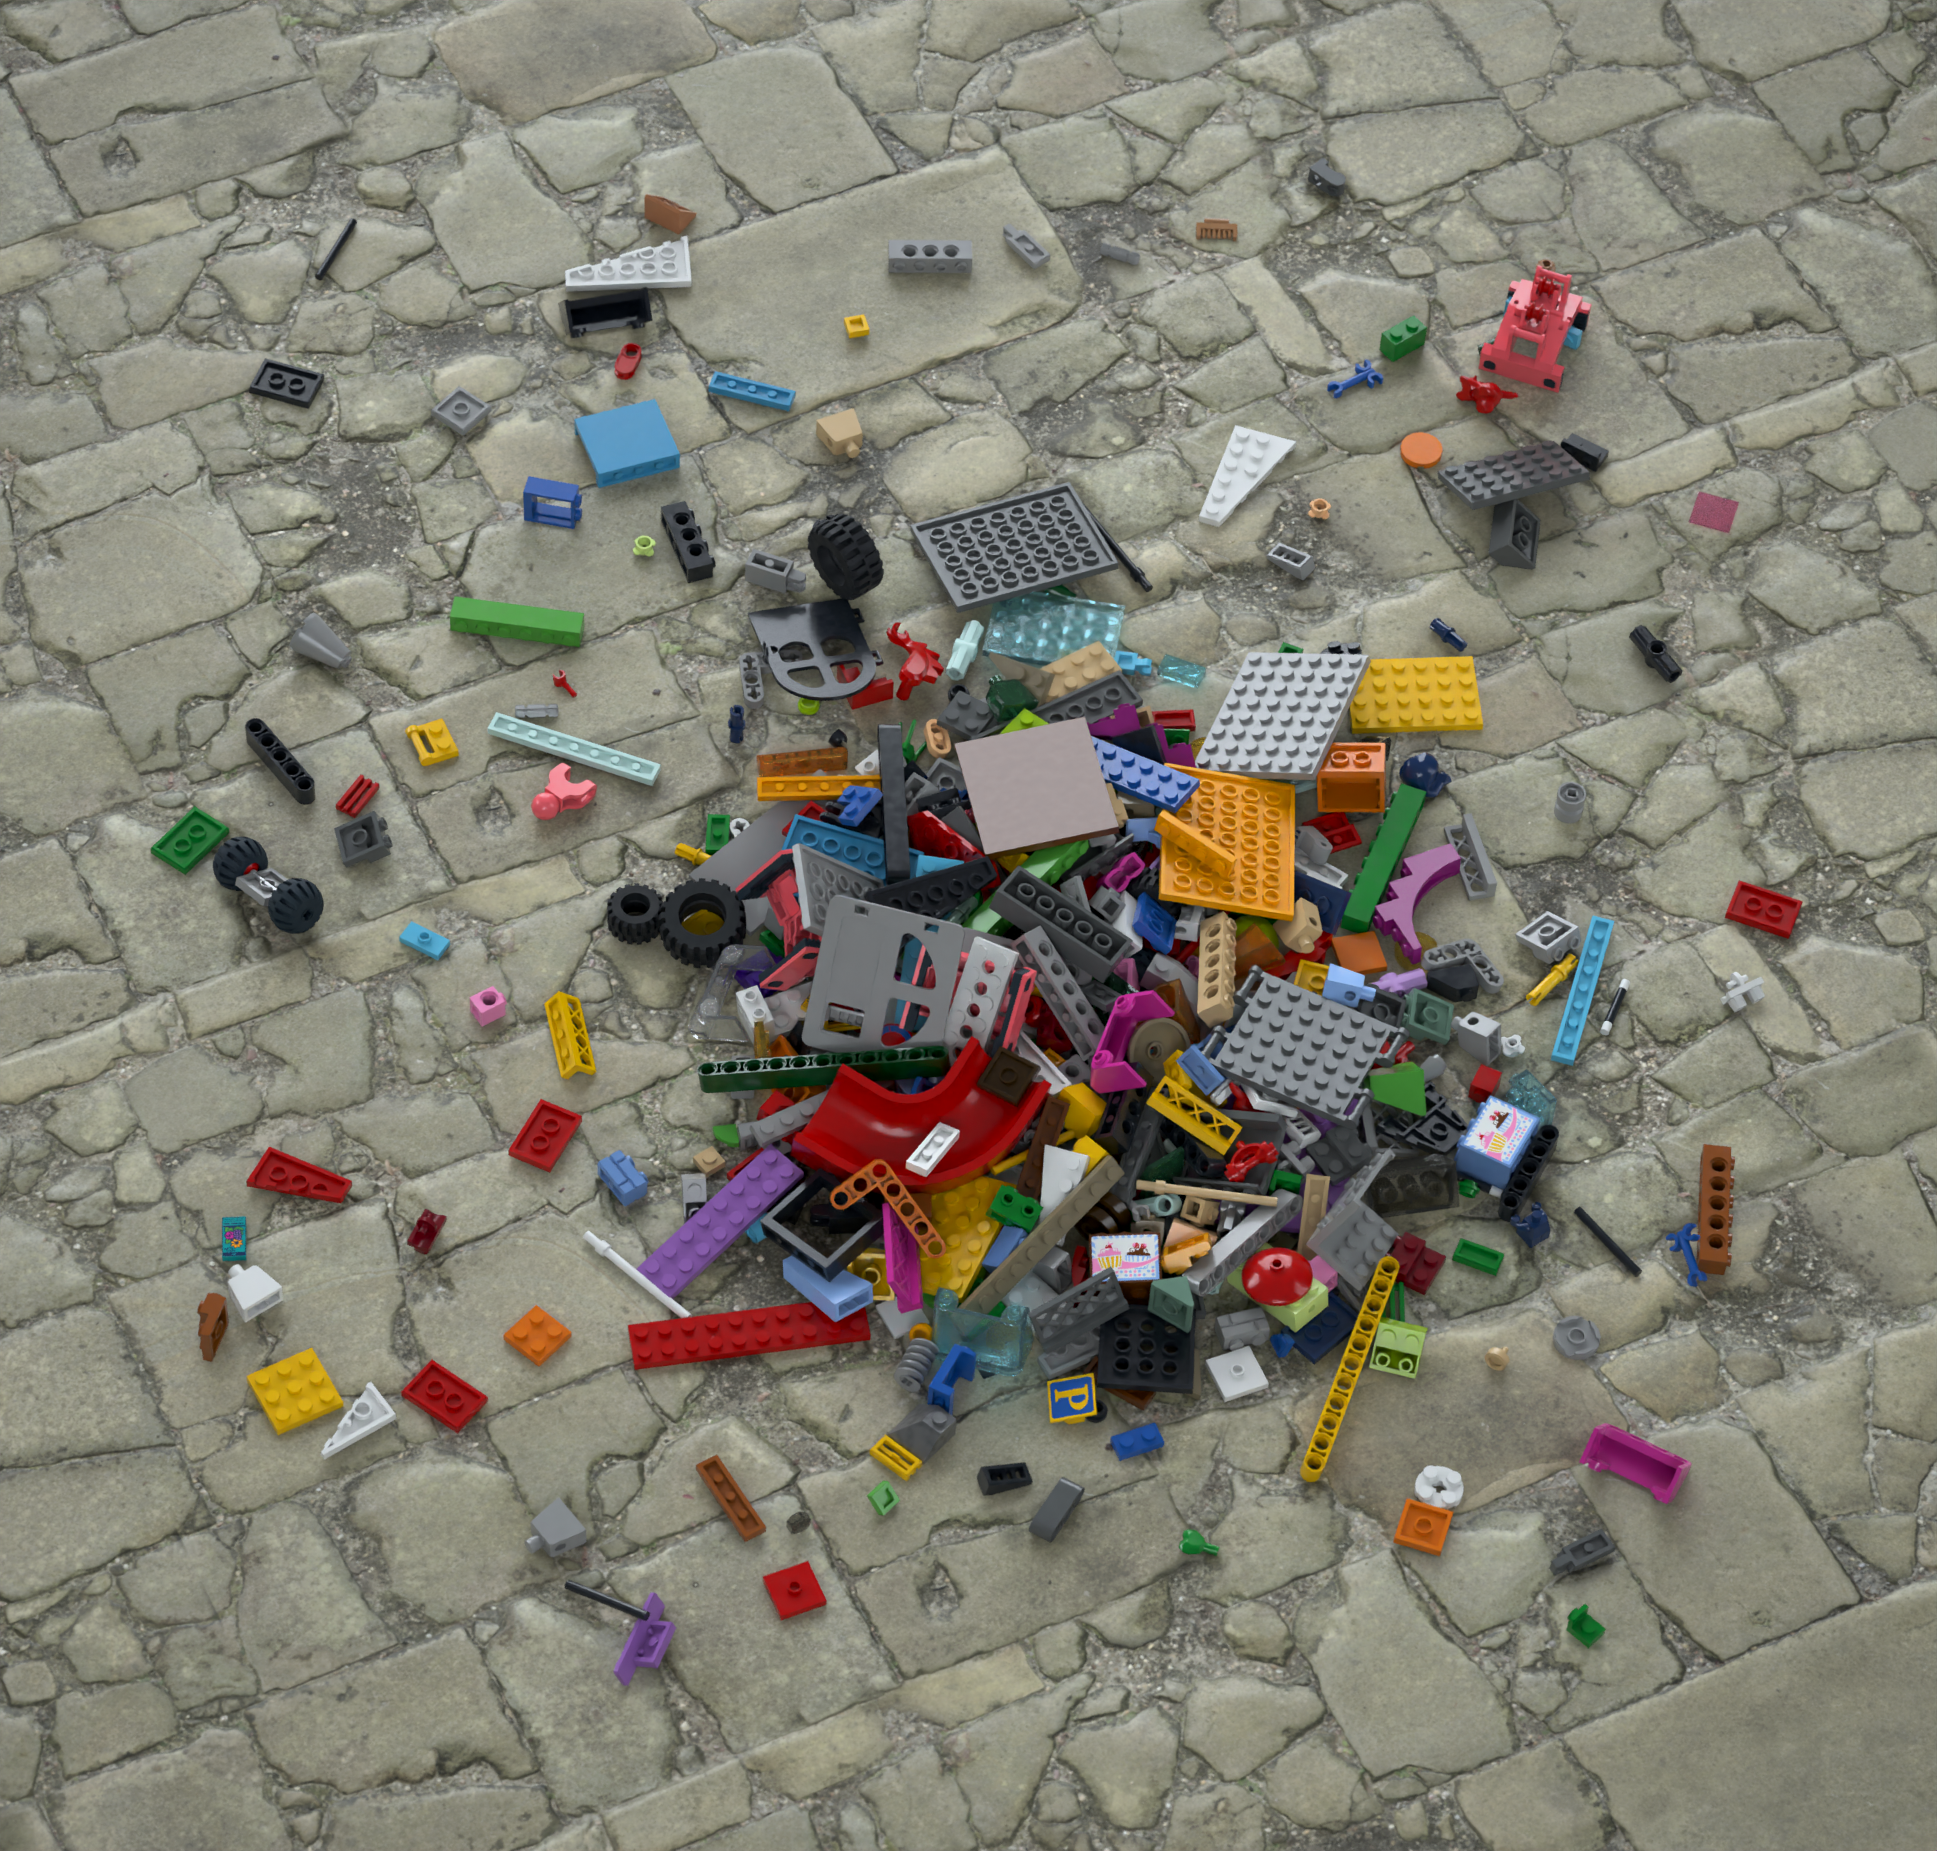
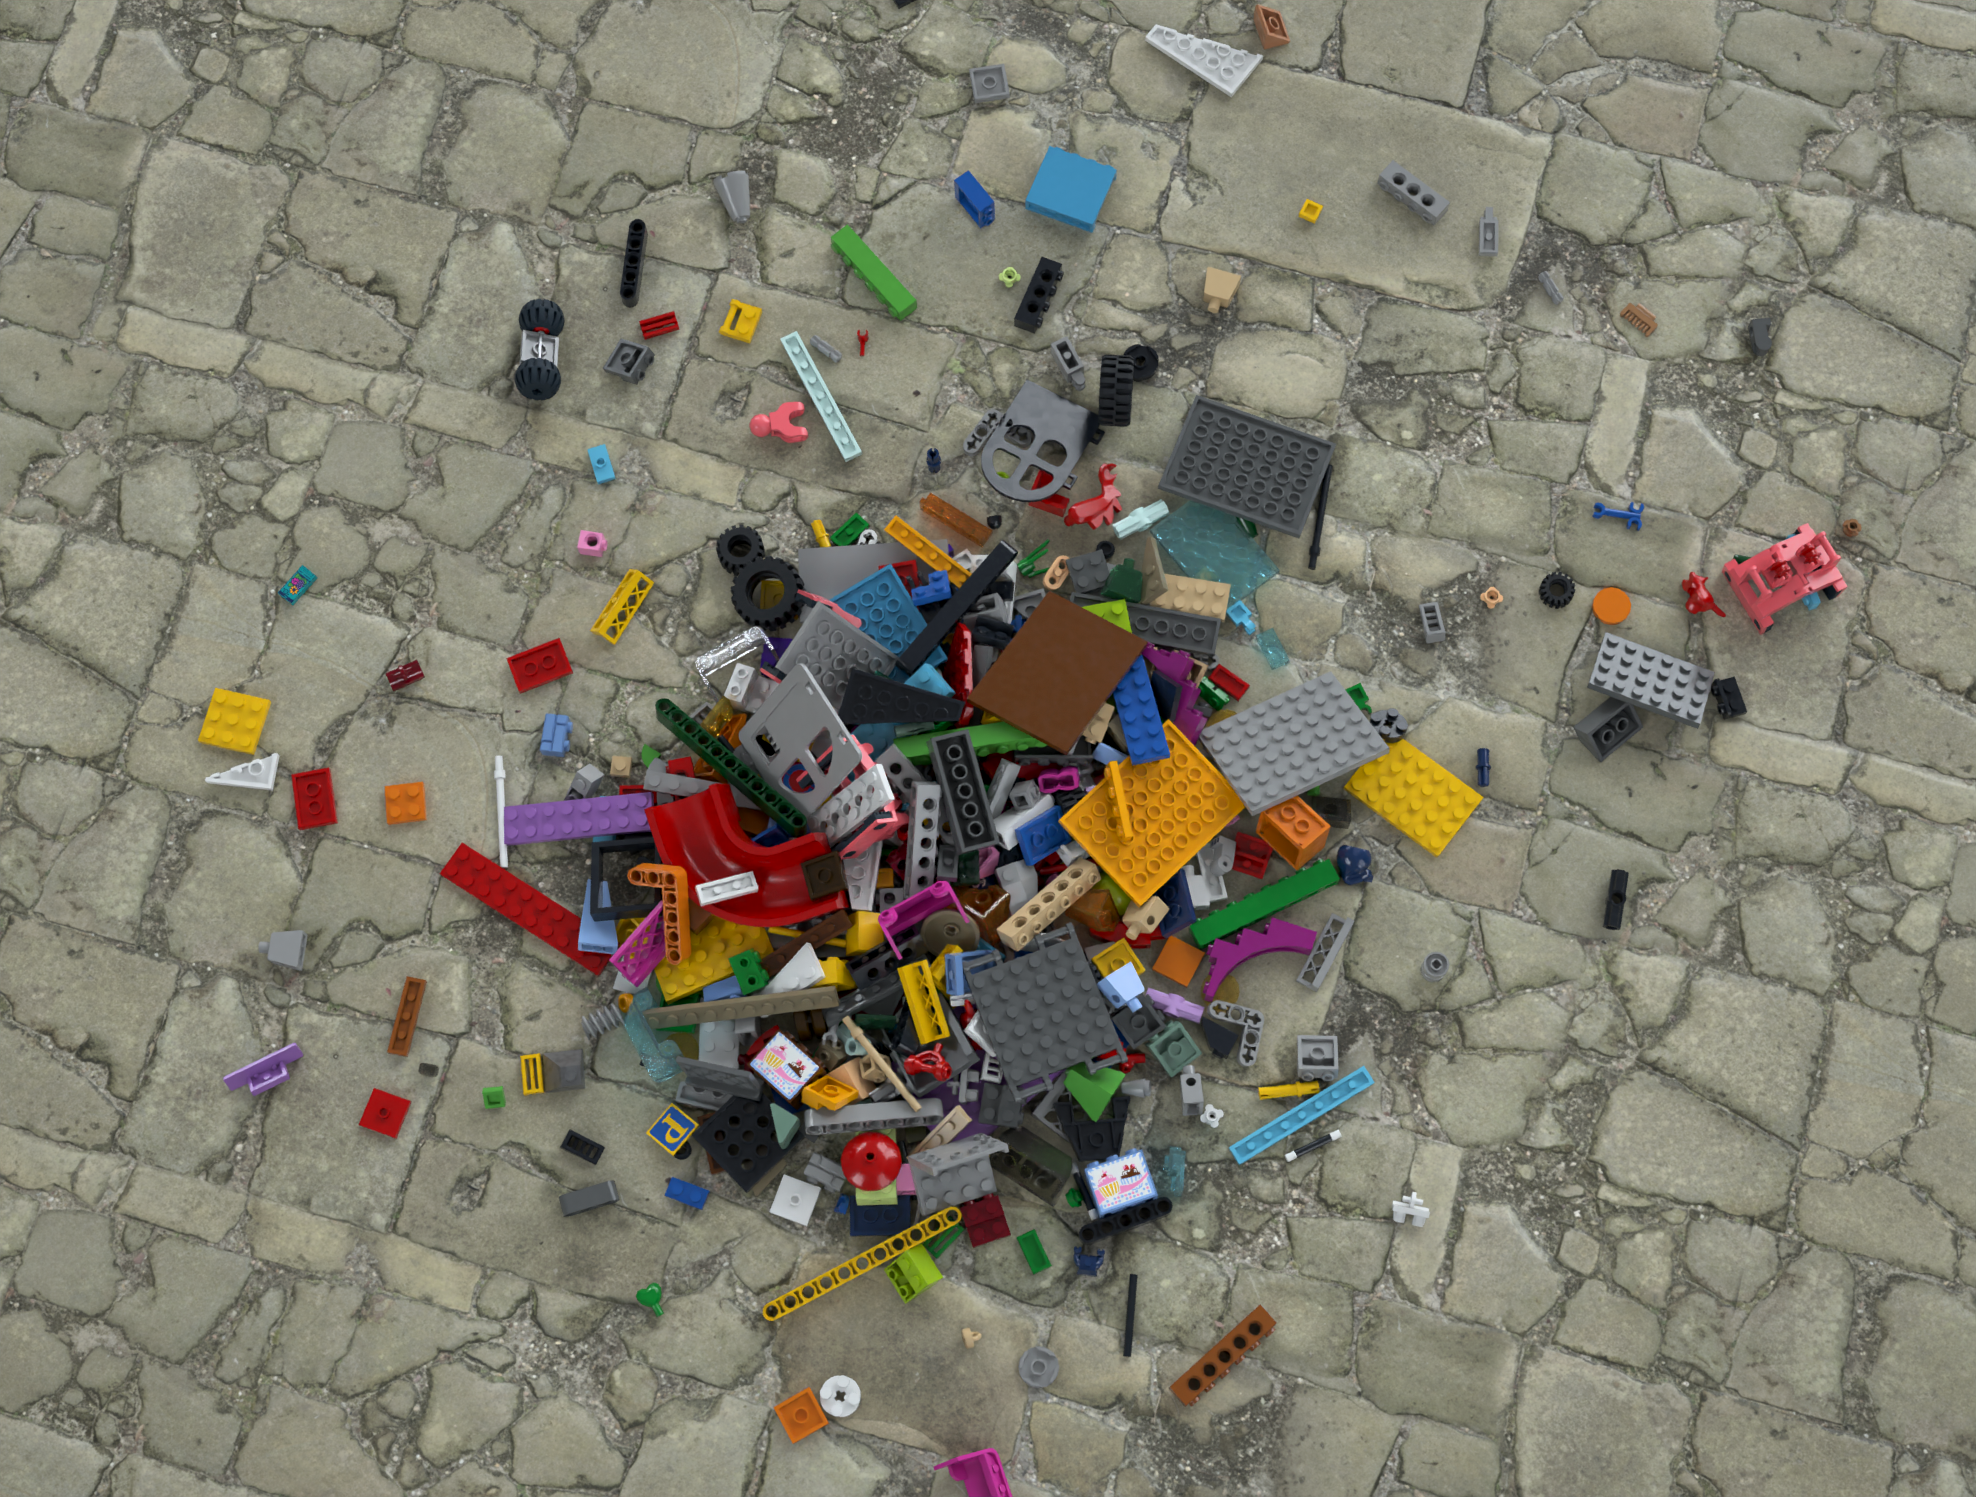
camera: 50 degrees right, 20 degrees up
(189, 840) = (531, 277): green tile -> none
(212, 1324) = (224, 637): dark orange plate -> none
(253, 1291) = (270, 631): white torso -> none
(296, 1177) = (369, 571): red wing -> none
(605, 312) = (1148, 73): black windscreen -> none
(607, 1600) = (267, 1025): black bar -> none
(627, 365) = (1130, 127): red piece -> none
(751, 391) = (1192, 210): dark azure plate -> none
(958, 1363) = (603, 1050): blue panel -> none
(1242, 469) = (1471, 523): white wing -> none
(1286, 1181) = (947, 1098): green bracket -> none
(1366, 458) = (1549, 598): none -> black tyre
(1403, 338) = (1684, 507): green brick -> none
(1484, 1084) = (1161, 1131): red brick -> none
(1682, 1242) = (1177, 1362): blue bar -> none
(1713, 512) = (1778, 818): clear pink piece -> none
(1763, 909) = (1493, 1158): red tile -> none

